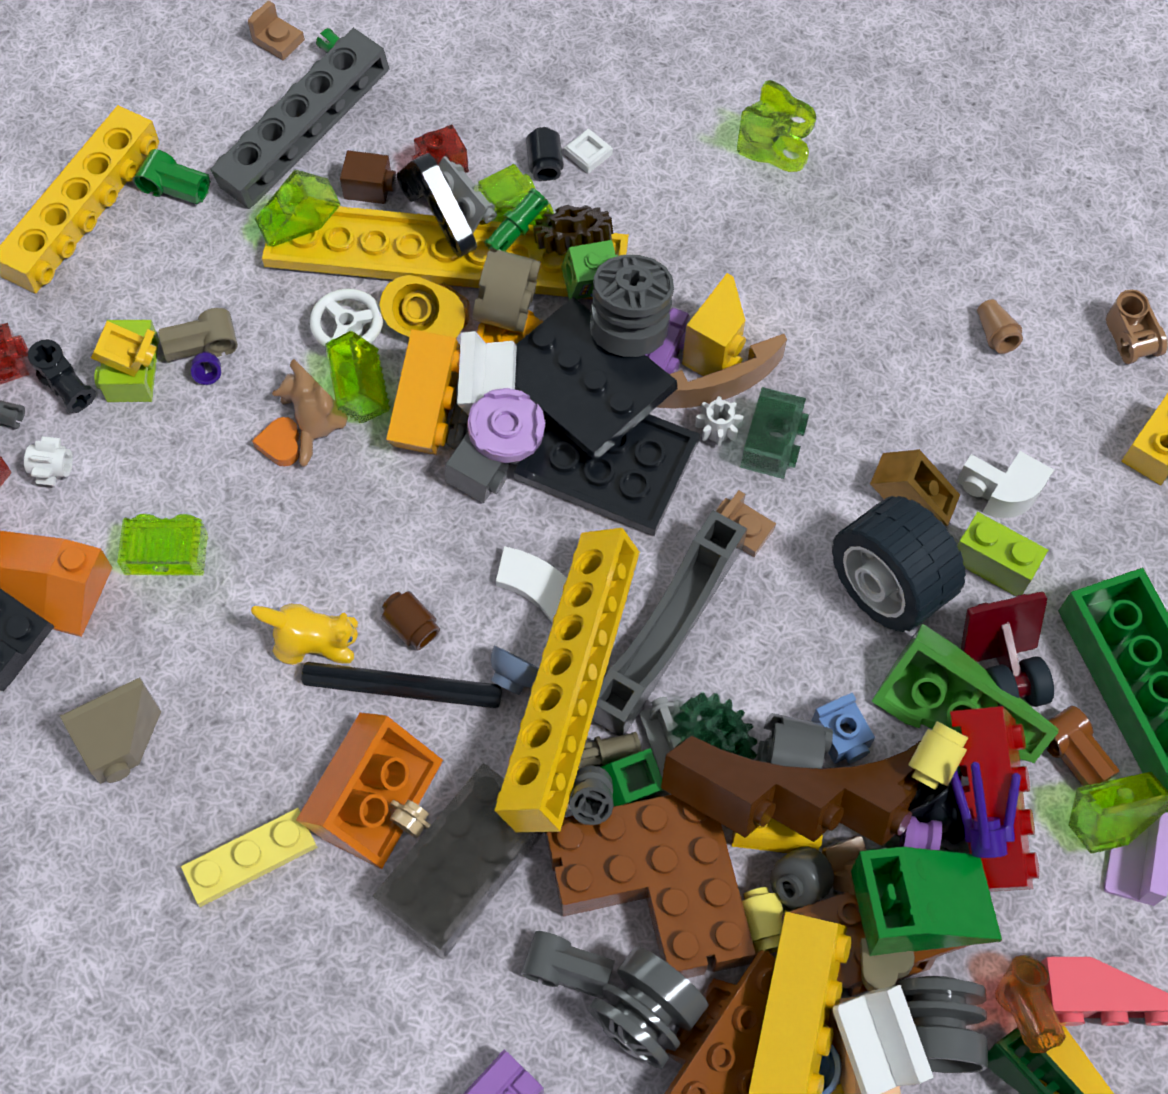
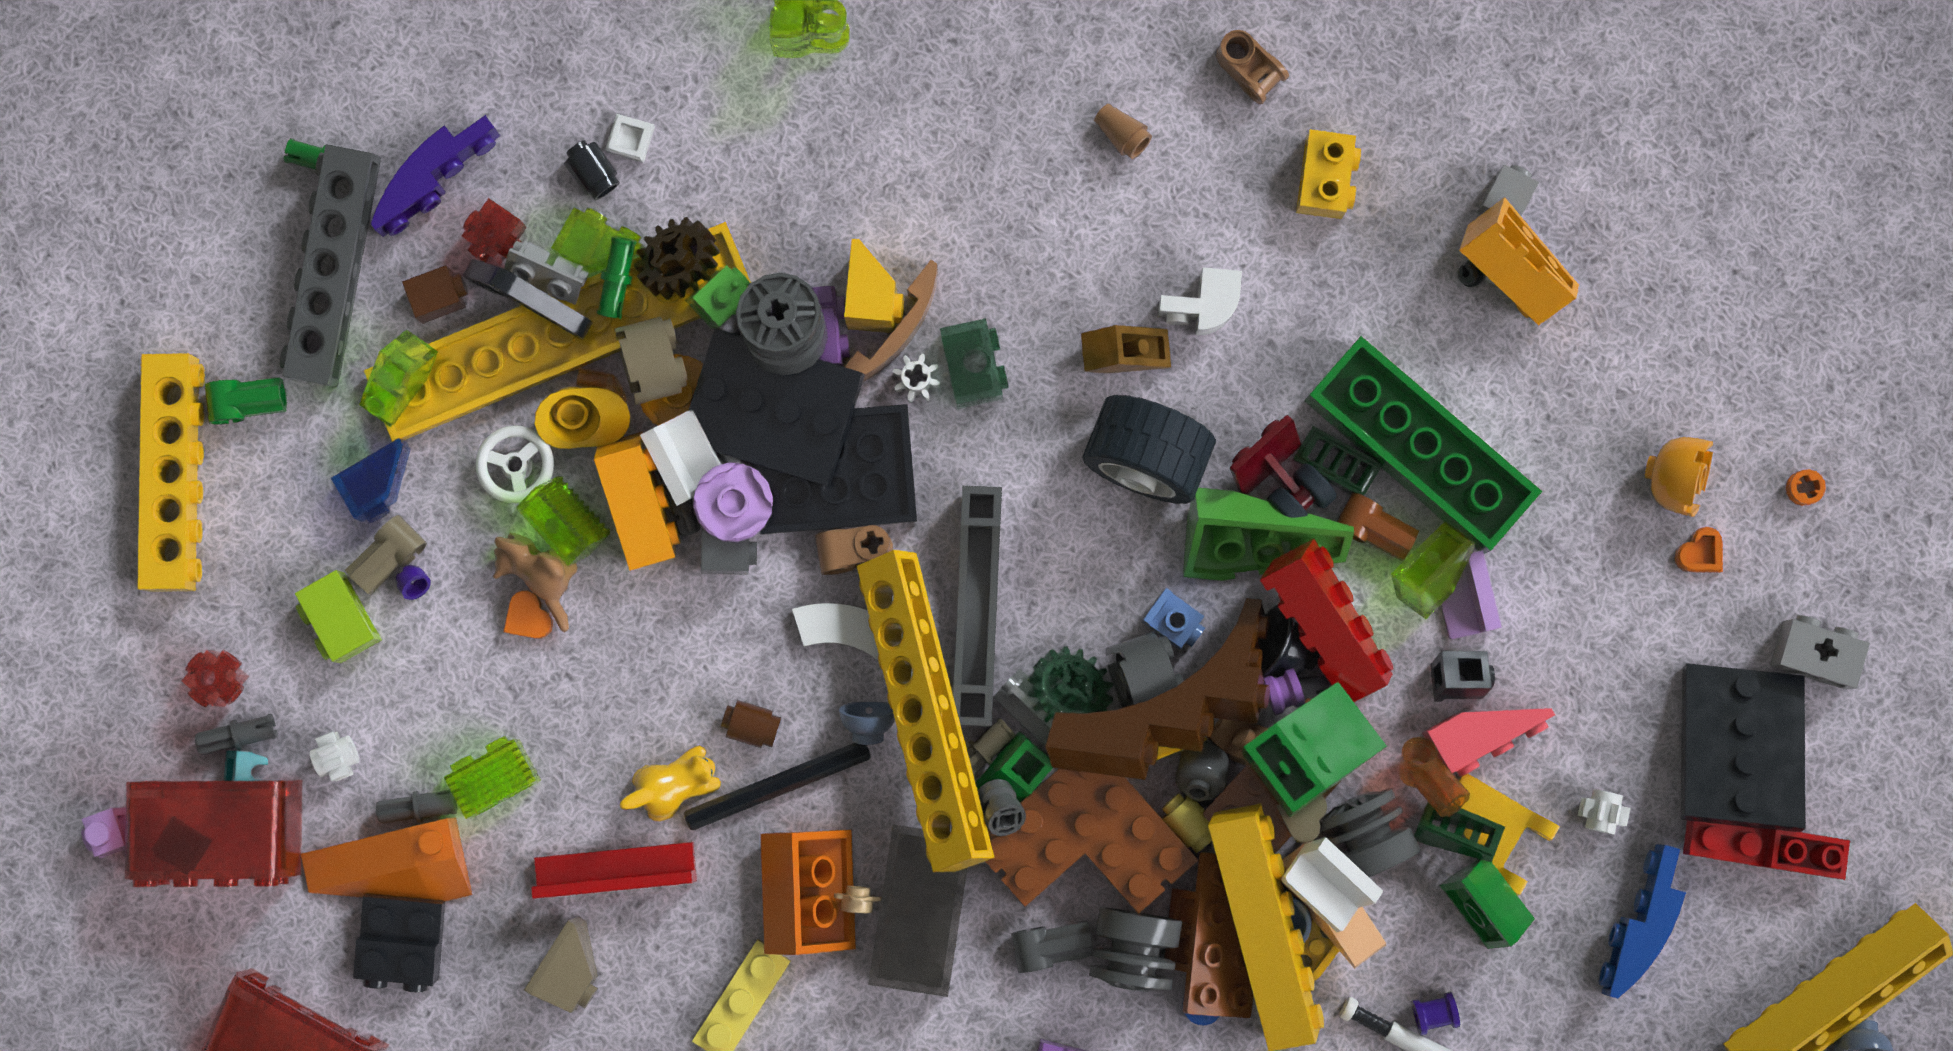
camera: 25 degrees left, 20 degrees up
(59, 375) = (286, 667): black connector -> none
(86, 534) = (416, 807): none -> dark grey axle
(124, 349) = (338, 619): yellow bracket -> none
(213, 679) = (614, 870): none -> red fence
(229, 278) = (374, 481): none -> clear blue slope
(273, 33) = (232, 169): medium nougat bracket -> none
(407, 97) = (416, 181): none -> dark purple slope
(577, 515) = (844, 548): none -> medium nougat piece
(758, 526) = (991, 468): medium nougat bracket -> none
(938, 755) = (1267, 624): light yellow brick -> none
(986, 833) = (1334, 664): dark purple plant -> none
(1000, 554) = (1230, 379): lime brick -> none
(1086, 679) = (1358, 457): none -> dark green slope
(1104, 925) = (1470, 664): none -> black brick

